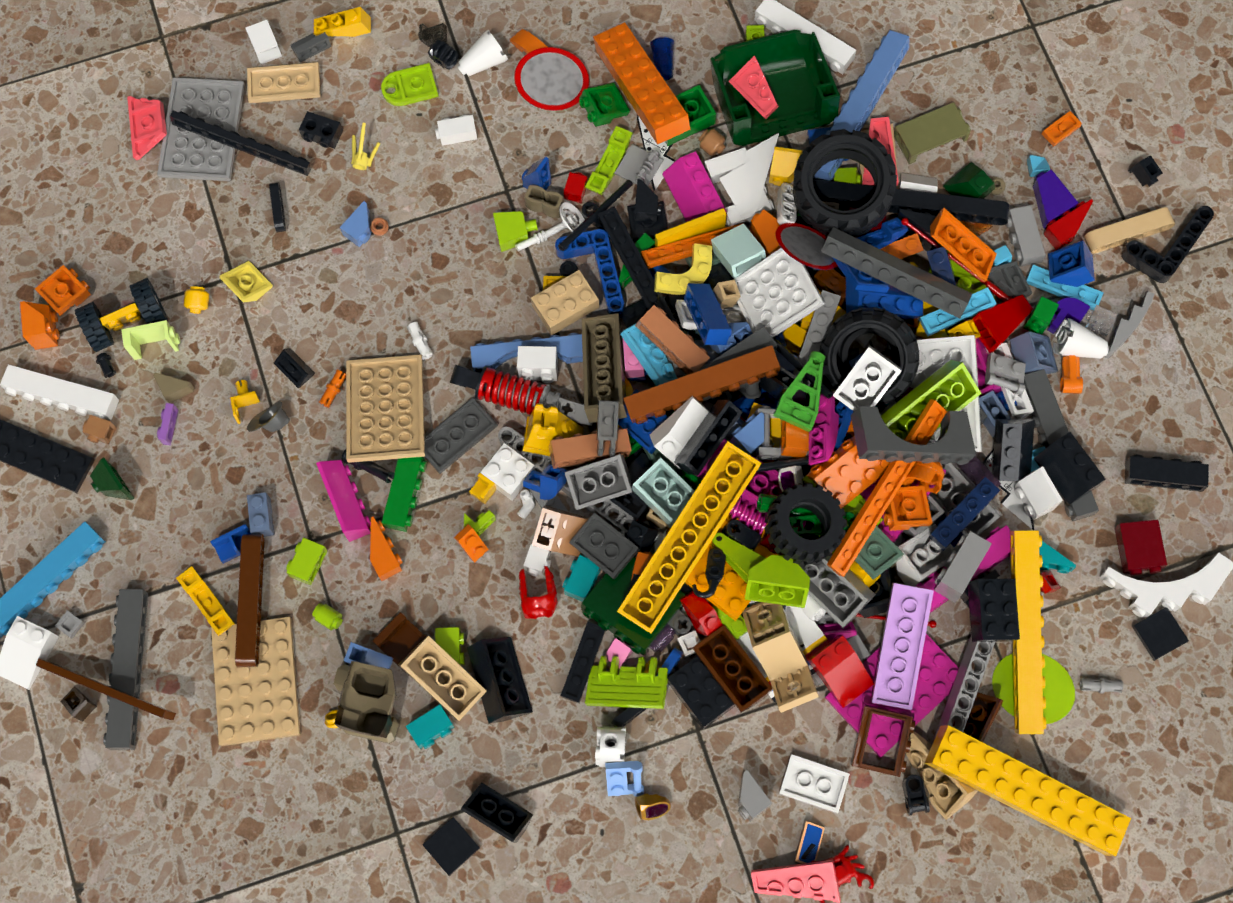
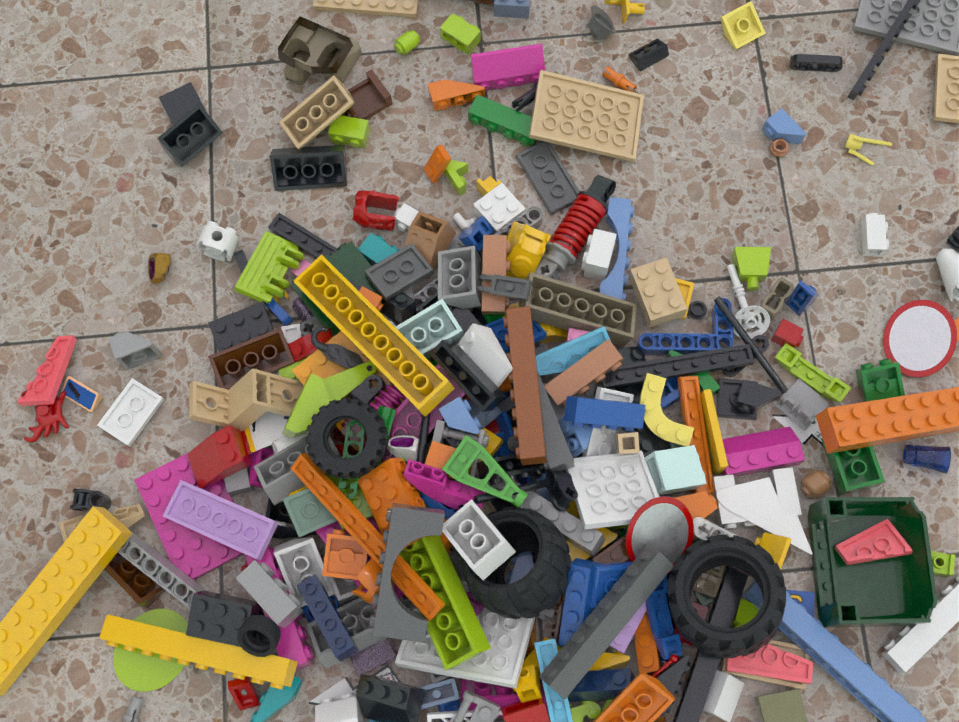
camera: 105 degrees right, 0 degrees up
(322, 127) = (894, 112): black brick -> none
(367, 656) = (359, 61): medium blue slope -> none
(411, 85) = (934, 205): lime tile -> none
(419, 340) = (651, 161): white pin -> none
(430, 727) = (283, 99): teal brick -> none
(617, 778) = (187, 246): light blue plate -> none
(789, 334) = (560, 489): none -> black piece
(904, 745) = (163, 493): reddish brown window -> none
(1004, 561) = (251, 644): none -> black tyre

